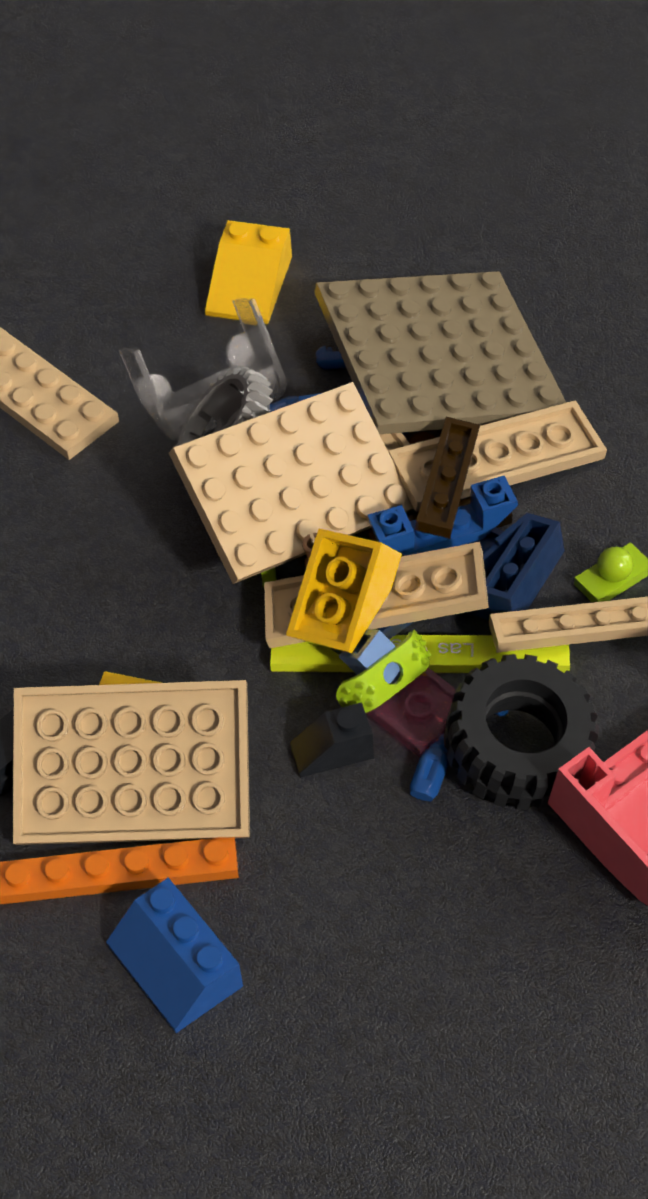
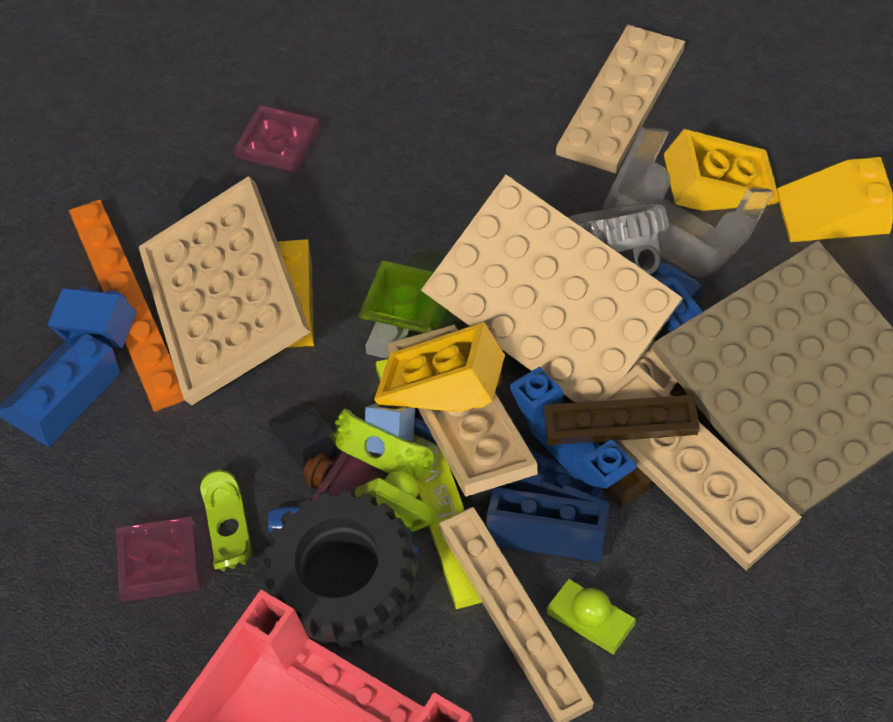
camera: 70 degrees right, 0 degrees up
(104, 895) = (95, 313): none -> blue brick
(174, 341) = (715, 171): none -> yellow slope
(217, 611) = (398, 299): none -> clear neon green slope
(243, 650) = (382, 335): none -> light grey plate
(387, 737) = (317, 470): none -> reddish brown plate
(387, 831) = (225, 502): none -> lime piece
(434, 899) = (157, 559): none -> clear pink plate
(451, 667) = (400, 493): none -> lime tile

